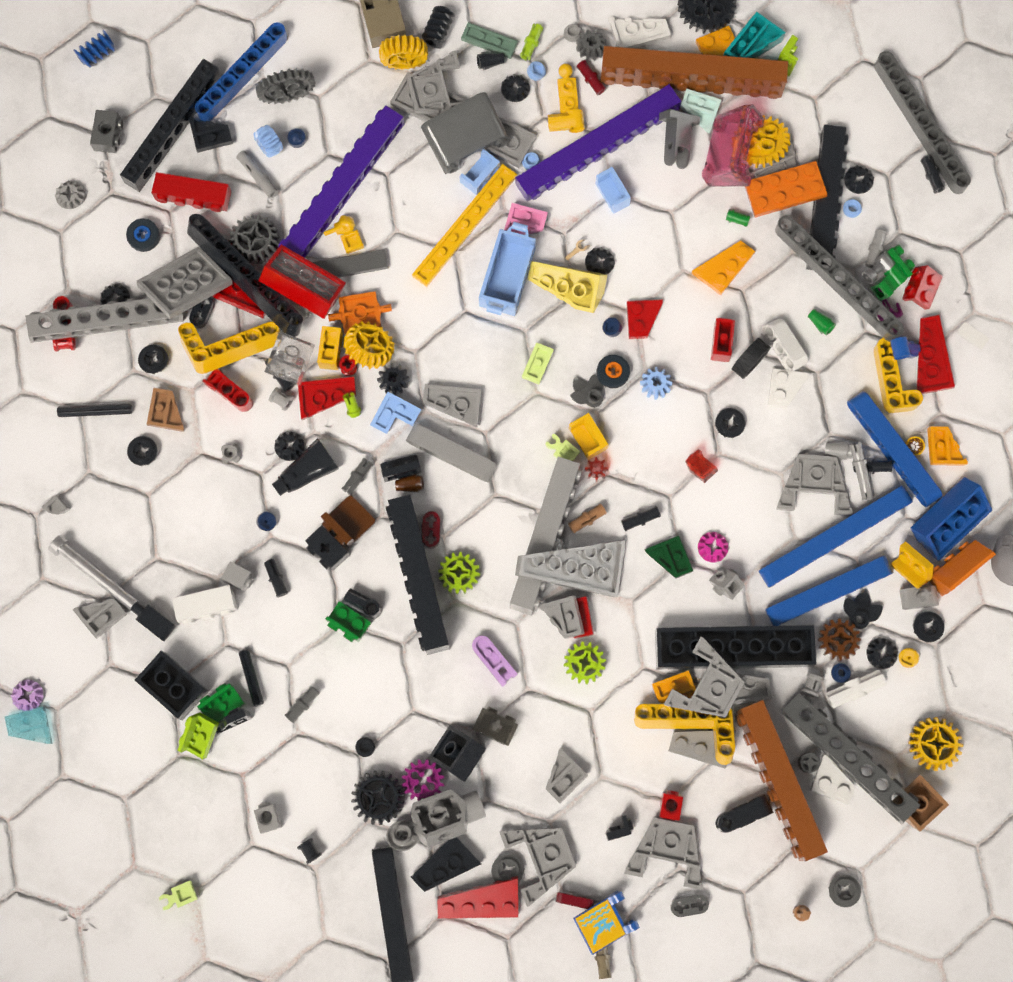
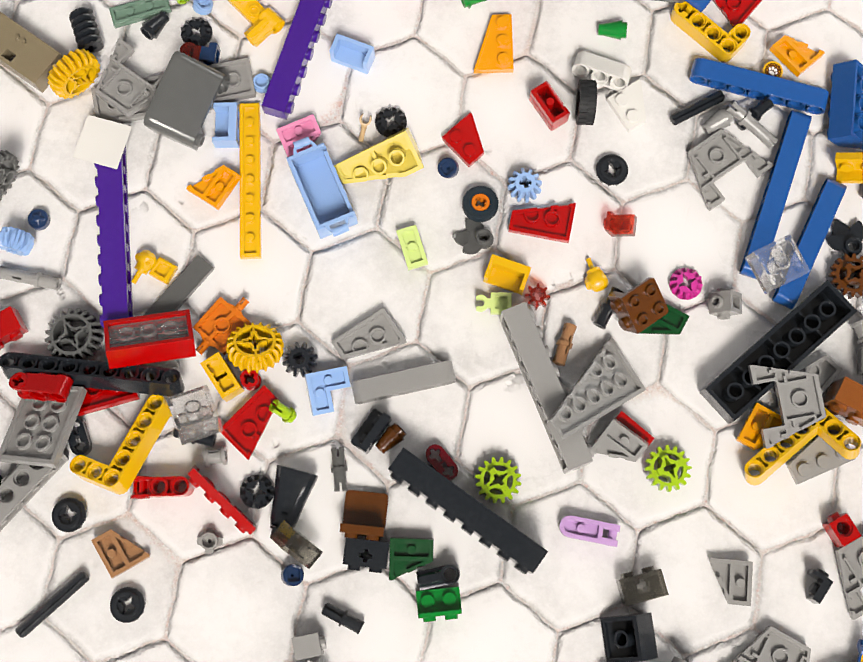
camera: 40 degrees left, 0 degrees up
(204, 256) = (41, 386): none -> red piece
(262, 458) = (243, 523): none -> red wing
(284, 502) = (296, 544): none -> clear smoke brick
(355, 573) = (409, 554): none -> dark green wing
(383, 117) = (102, 141): none -> white sticker
(436, 210) = (216, 186): none -> light orange wing
(504, 107) = (206, 55): none -> dark blue leg
(649, 423) = (546, 223): none -> red wing
(650, 490) = (595, 278): none -> yellow piece
(661, 533) = (639, 306): none -> reddish brown bracket
(785, 583) = (777, 264): none -> clear brick
(834, 428) = (697, 107): none -> black axle

